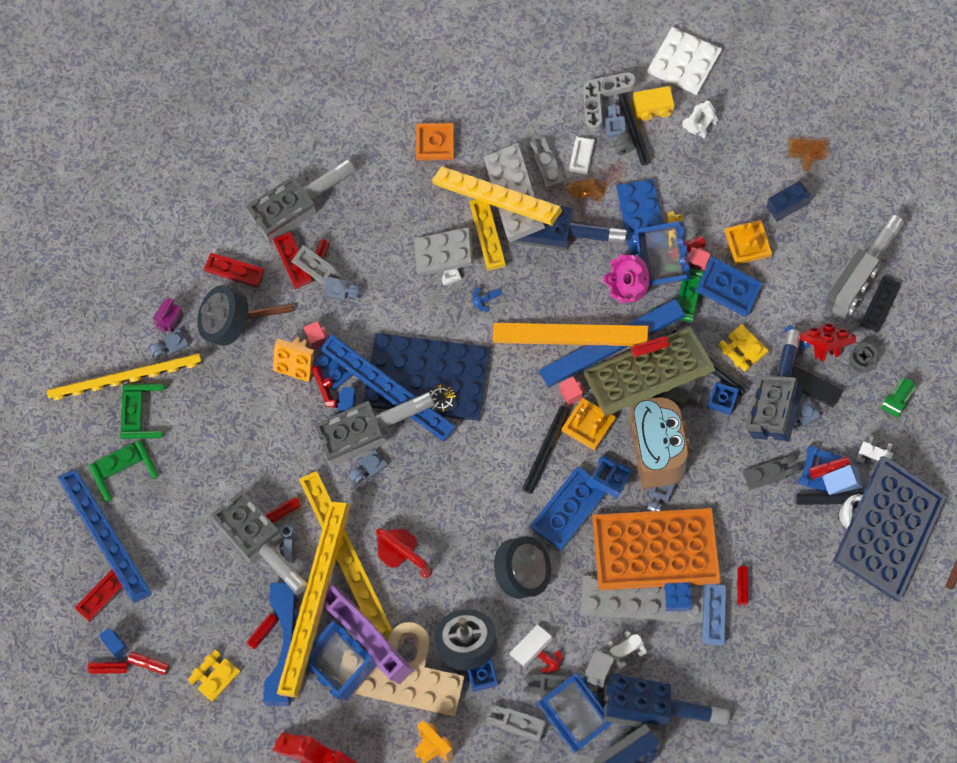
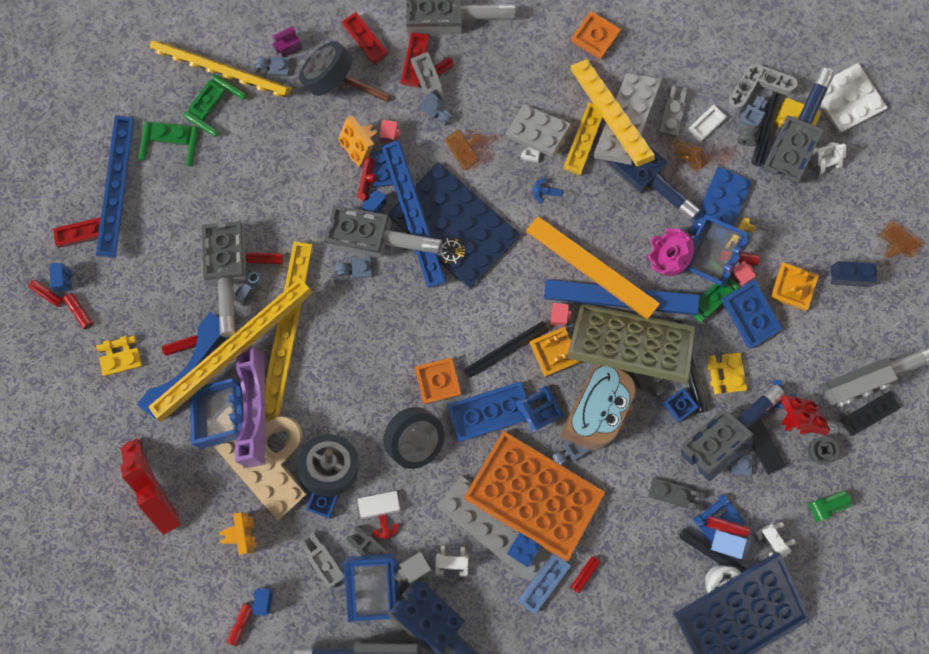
camera: 30 degrees right, 10 degrees up
(389, 308) = (462, 148): none -> clear orange plate
(397, 546) = (328, 350): red piece -> none
(507, 512) = (437, 381): none -> orange plate
(650, 346) = (649, 322): red axle -> none
(665, 119) = (798, 136): none -> dark grey piece

